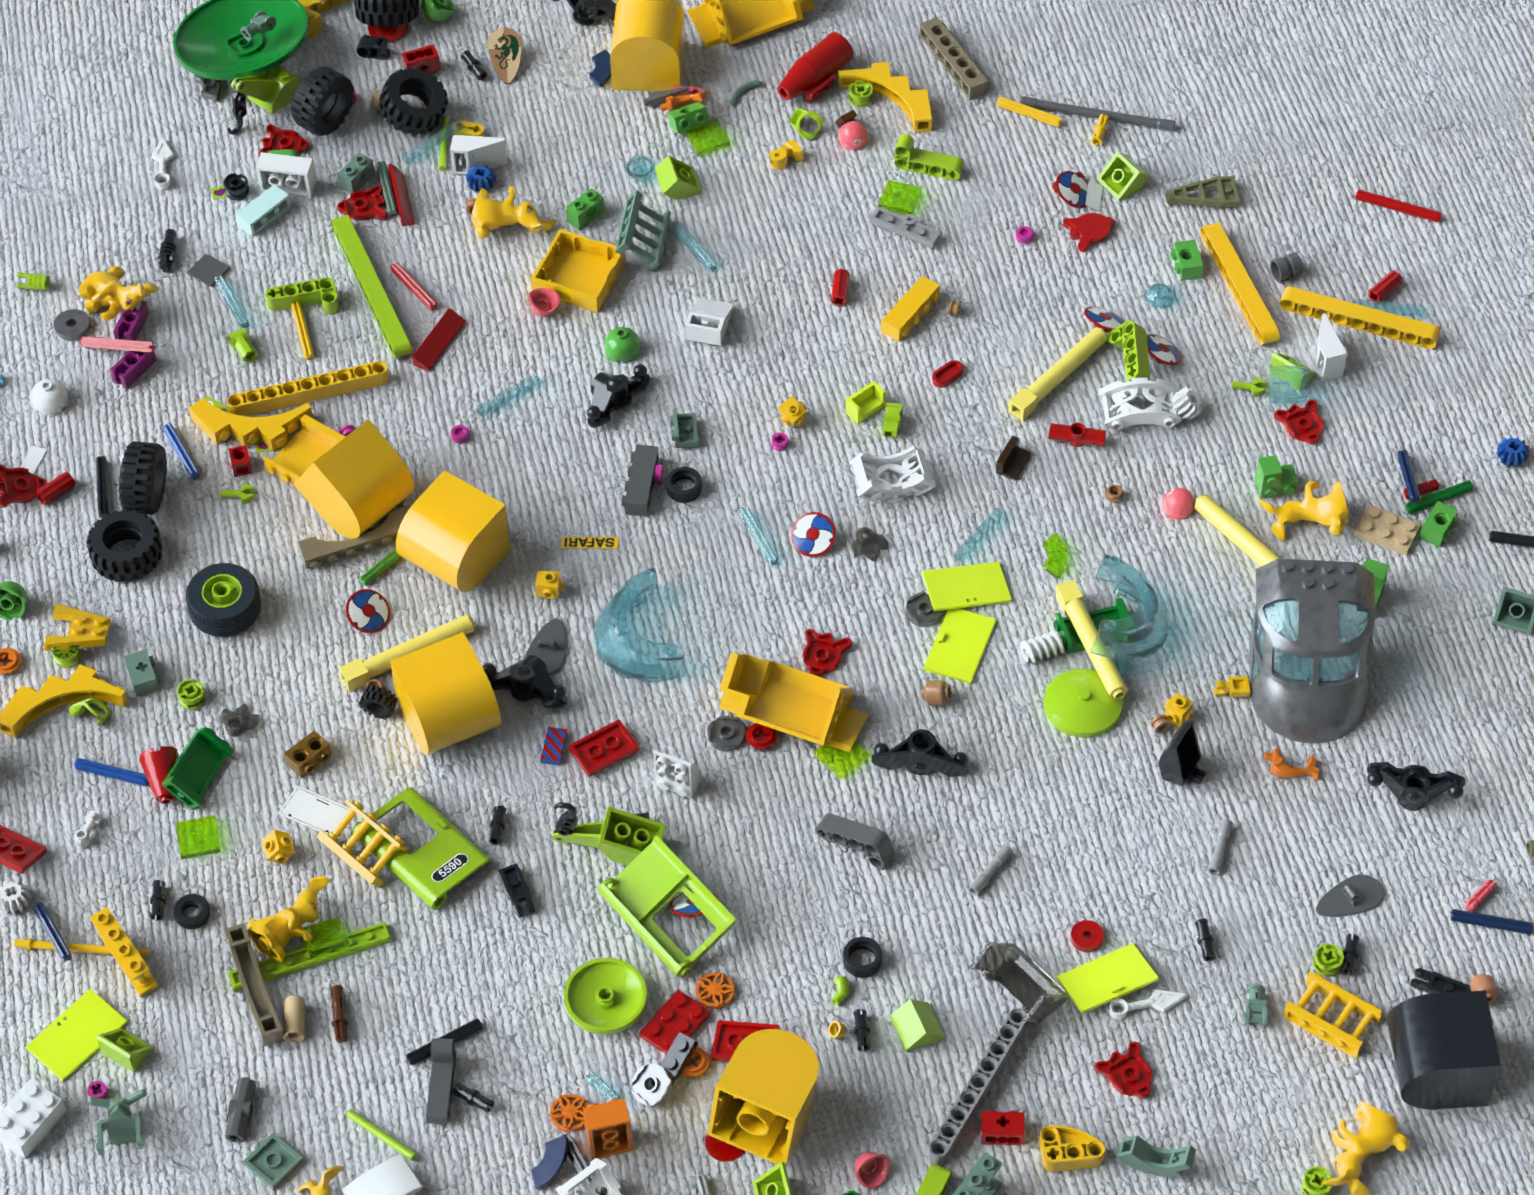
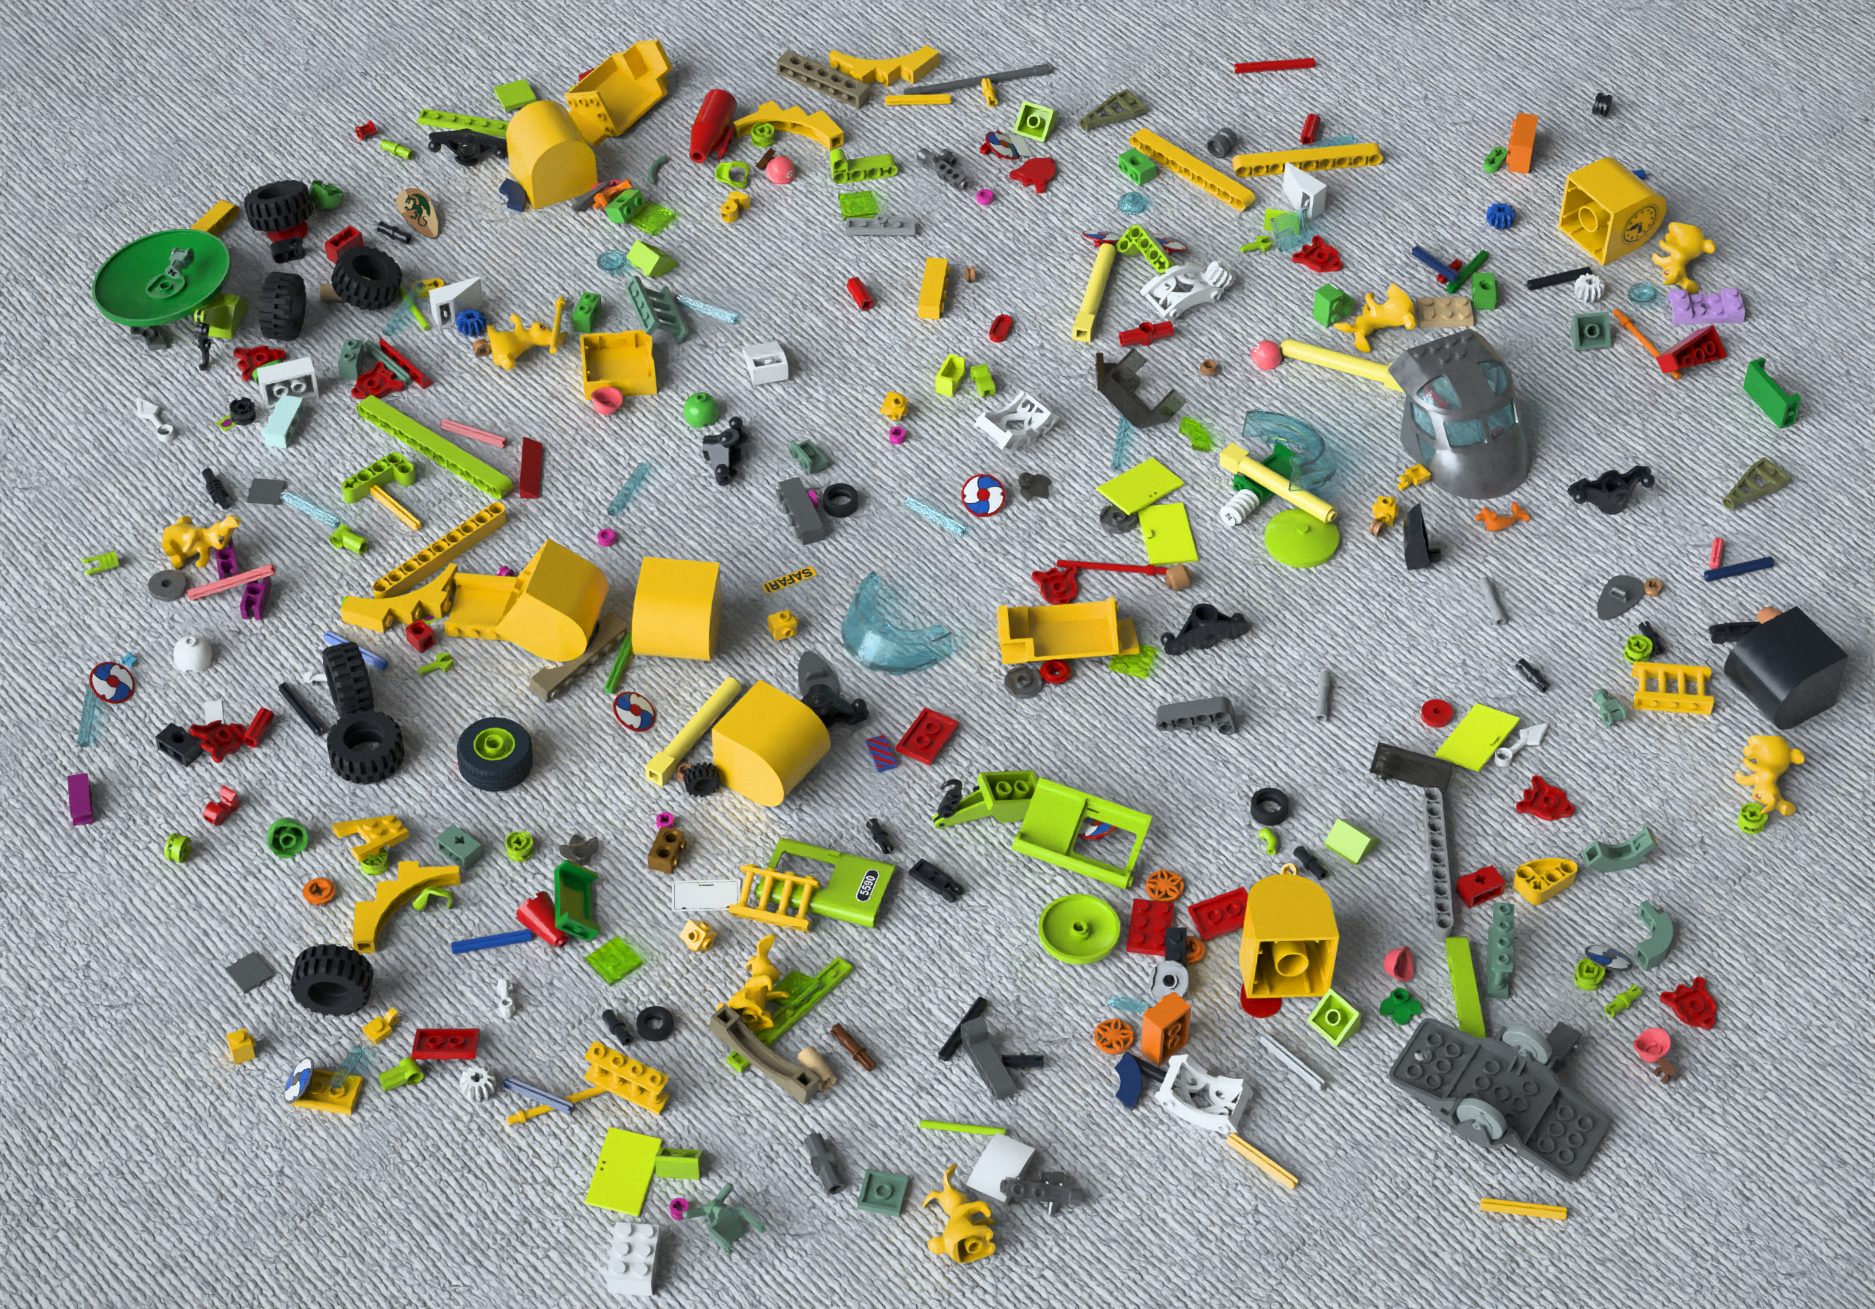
camera: 30 degrees left, 5 degrees down
(326, 732) = (665, 816): none -> dark pink bush
(568, 192) = (559, 305): none -> yellow bar
(676, 775) = (1010, 727): white slope -> none
(916, 673) = (1149, 570): none -> red bar
(1001, 185) = (943, 167): none -> flat silver piece
(1011, 492) = (1120, 388): none -> clear smoke windscreen
(1019, 72) = (887, 71): none -> yellow arch
(1394, 899) = (1653, 587): none -> medium nougat bush

